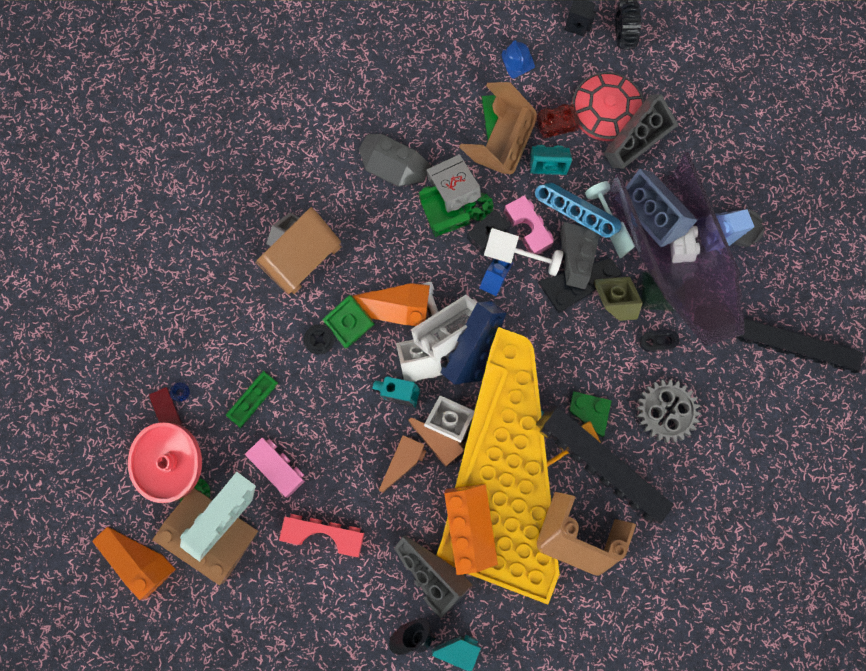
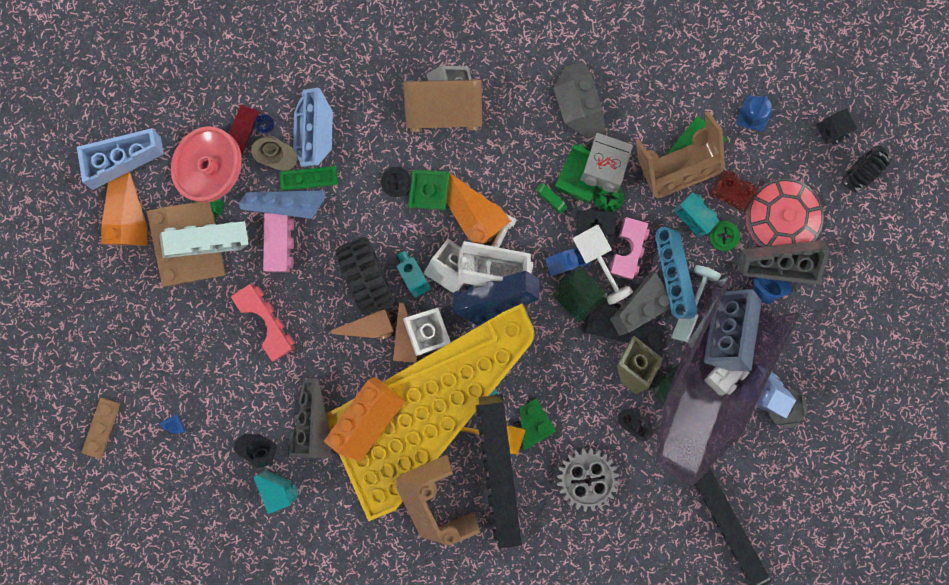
camera: 50 degrees right, 10 degrees up
(88, 524) = (116, 156): none -> light blue wedge
(209, 404) = (274, 153): none -> dark tan piece
(219, 359) = (312, 128): none -> light blue wedge
(255, 429) = (287, 203): none -> medium blue wing
(366, 422) = (364, 276): none -> black tyre
(440, 244) = (551, 198): none -> green beam
(528, 288) = (580, 294): none -> clear green slope
(583, 148) = (731, 230): none -> green gear
(650, 159) = (770, 289): none -> blue piece

